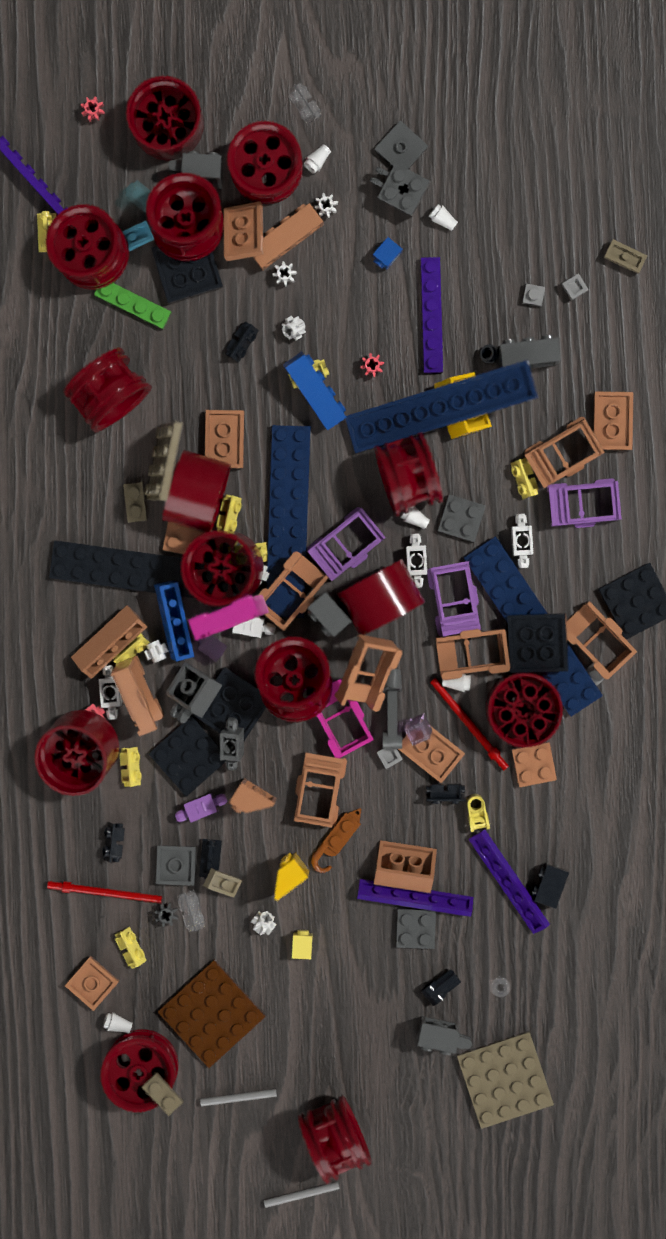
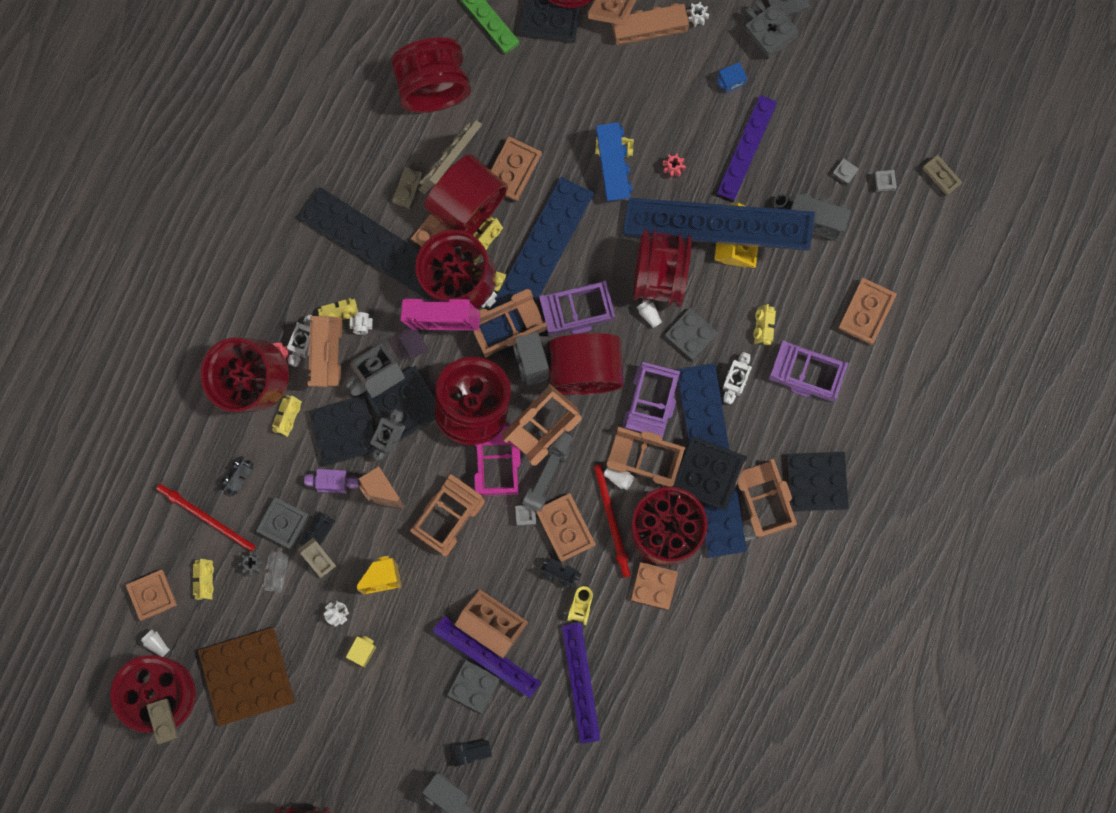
camera: 25 degrees right, 10 degrees down
(109, 642) = (323, 295): nougat brick -> none
(174, 620) = (390, 301): blue brick -> none
(237, 349) = (575, 91): black hinge -> none
(238, 1097) = (232, 768): light grey bar -> none
(255, 627) = (458, 341): white piece -> none
(283, 268) = (631, 58): white gear -> none
(293, 328) = (619, 102): white gear -> none
(337, 838) = (441, 569): dark orange plate -> none
(415, 539) = (634, 340): white piece -> none
(418, 729) = (563, 499): brick -> none
(442, 217) = (795, 70): white cone -> none
(500, 993) = (521, 775): clear plate -> none
(541, 463) = (786, 323): nougat piece -> none
(550, 885) = (618, 704): black brick -> none

